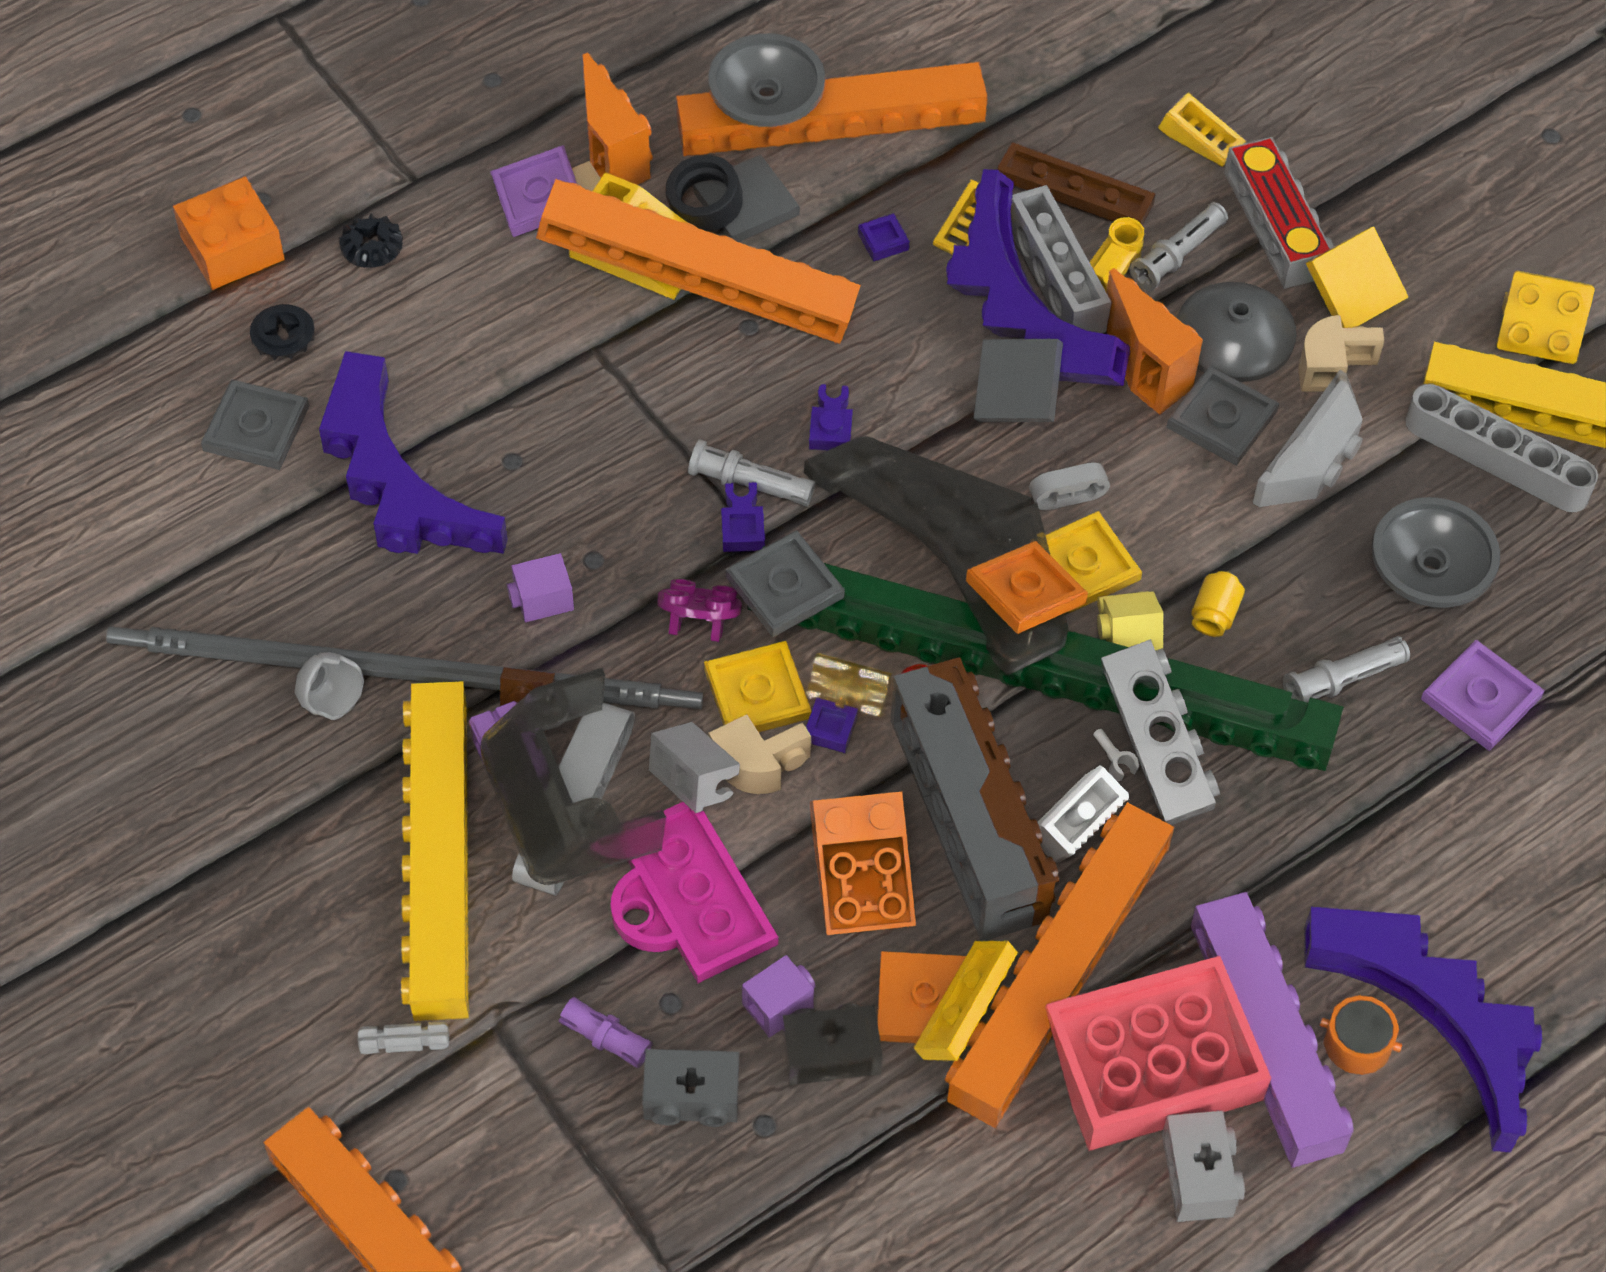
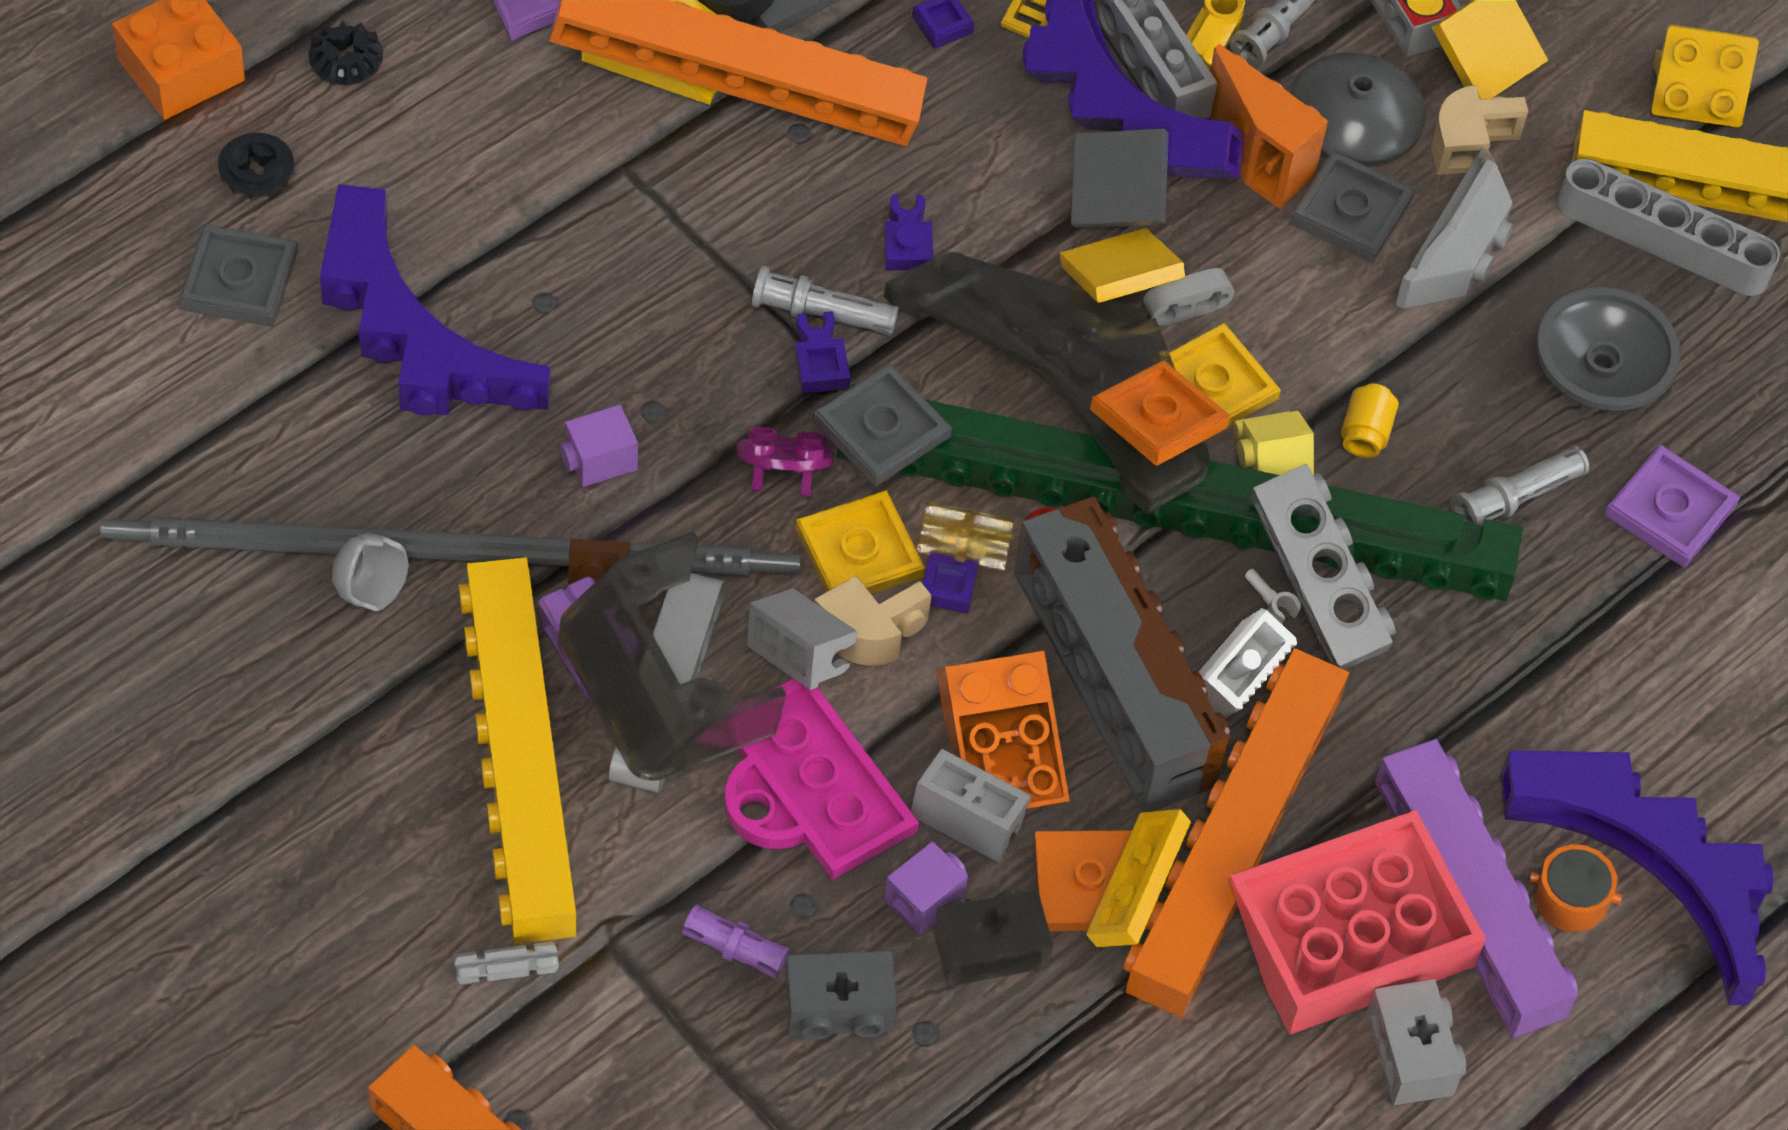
camera: 10 degrees left, 0 degrees up
(824, 923) = (969, 805): none -> light grey hinge
(1013, 455) = (1122, 265): none -> yellow tile

